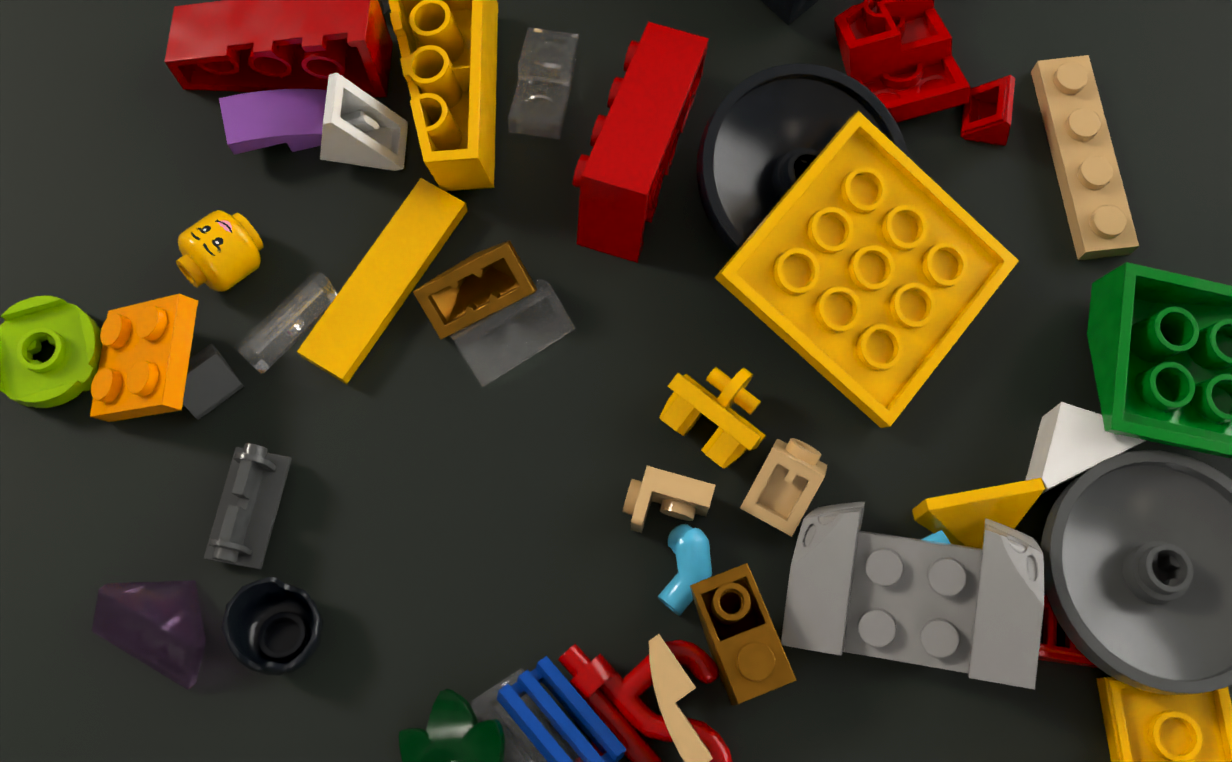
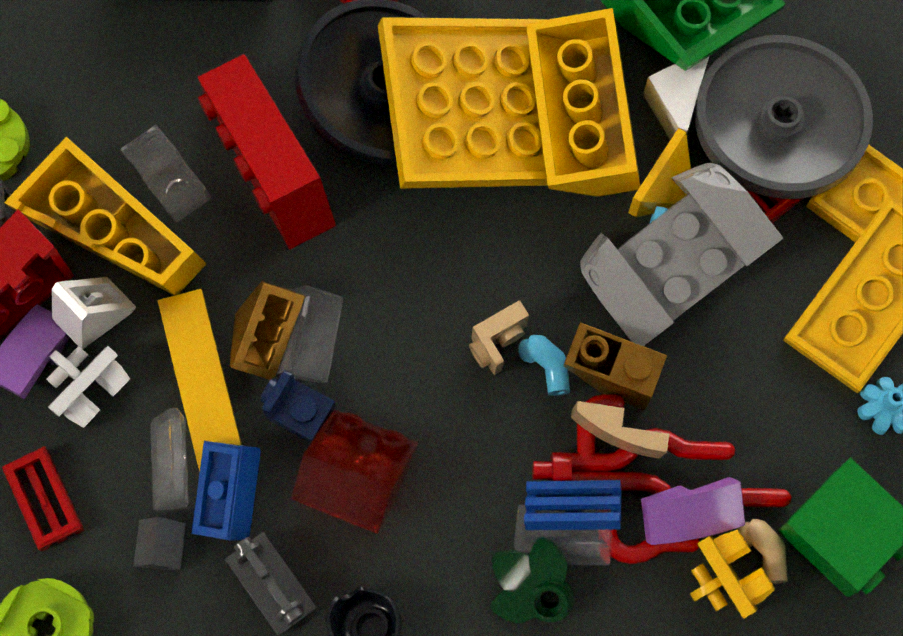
camera: 50 degrees left, 0 degrees up
(144, 359) = (116, 564): light orange plate -> none
(162, 273) = (58, 532): none -> red tile
(219, 251) = (85, 461): yellow head -> none
(265, 190) = (72, 401): none -> white hips
(298, 392) = (226, 491): none -> blue slope
(415, 484) = (354, 470): none -> clear red slope
(432, 379) = (296, 406): none -> dark blue bracket
(734, 431) = (495, 264): yellow hips -> none
(785, 485) = (552, 265): tan bracket -> none
(970, 368) = (583, 104): none -> yellow slope

